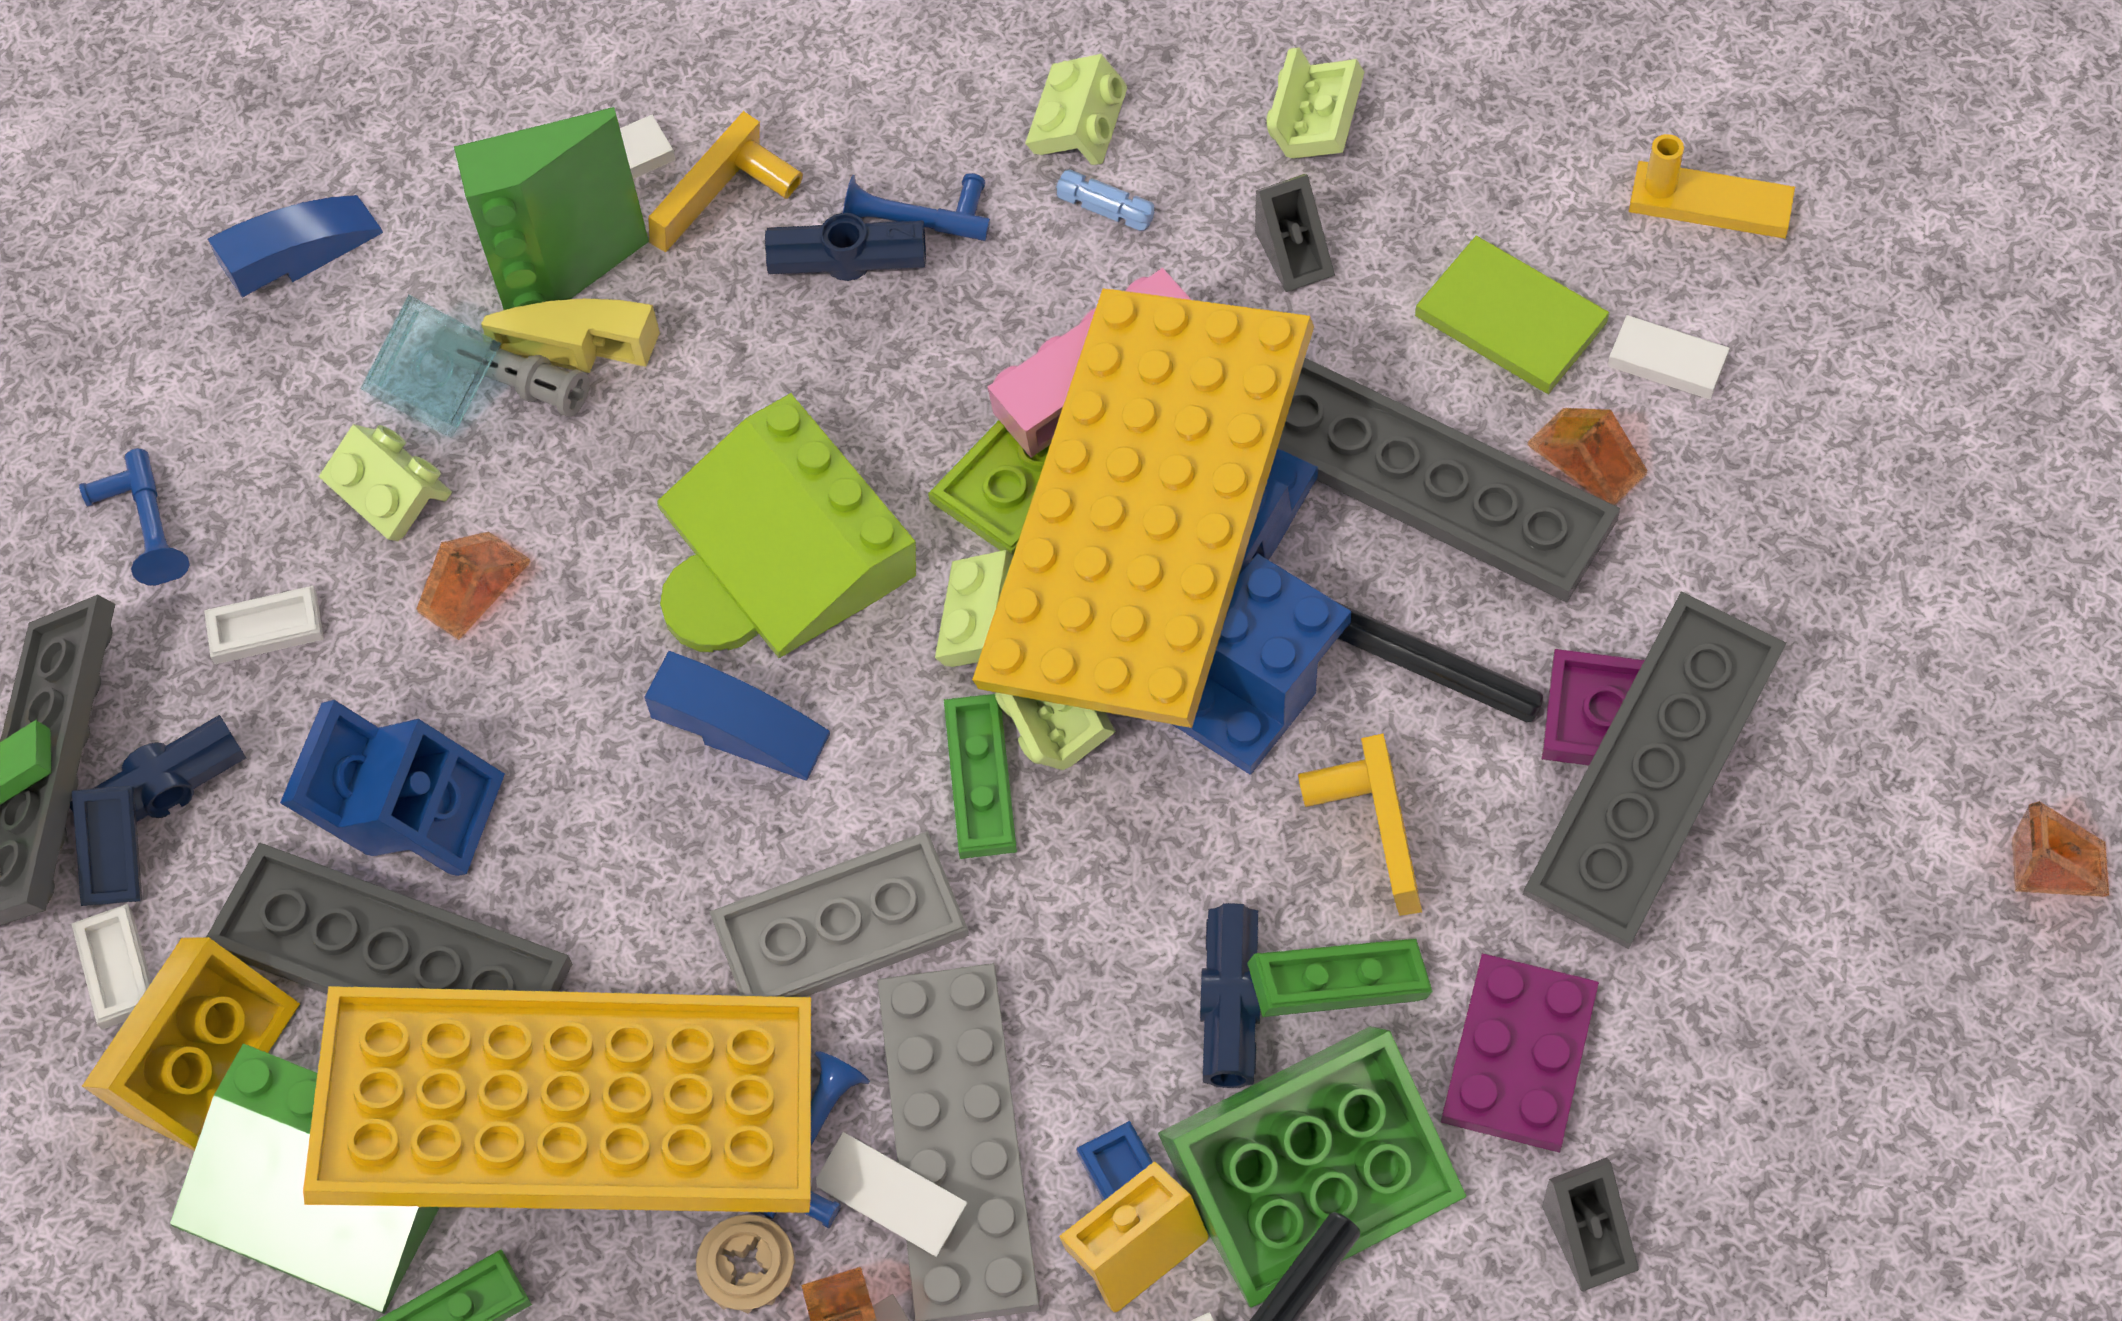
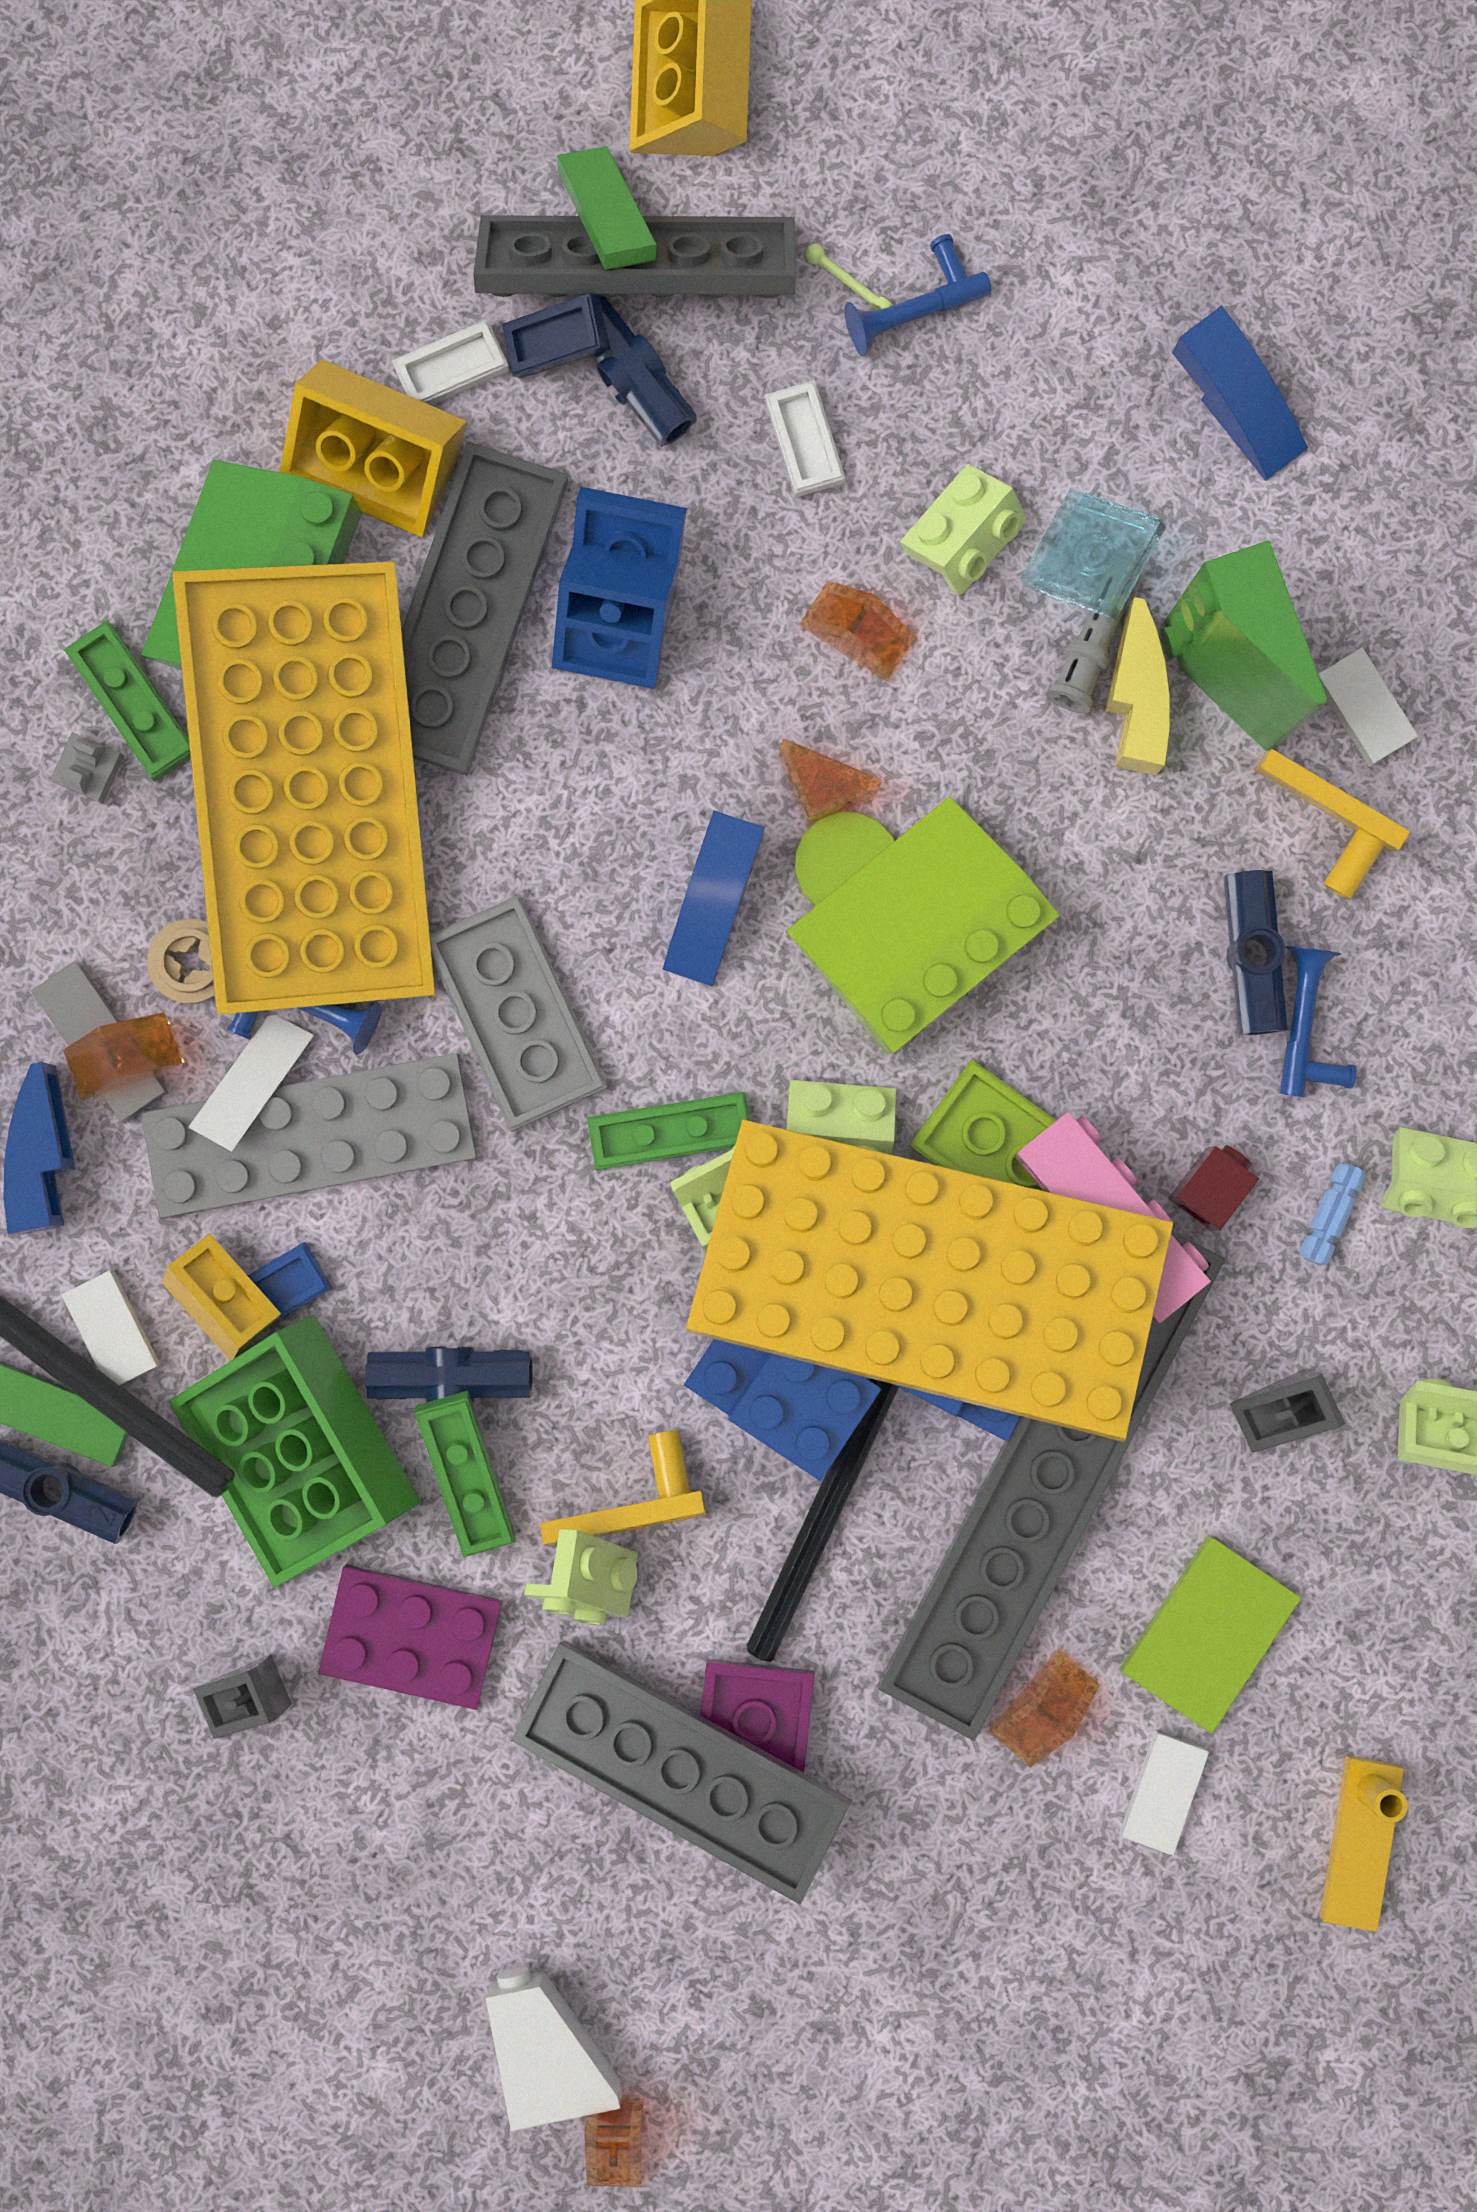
camera: 80 degrees right, 25 degrees up
(136, 549) = (816, 256): none -> yellowish green hinge
(626, 614) = (824, 784): none -> clear orange slope
(1069, 285) = (1215, 1186): none -> dark red brick
(1449, 836) = (588, 1579): none -> yellowish green bracket
(1967, 922) = (545, 2054): none -> white slope

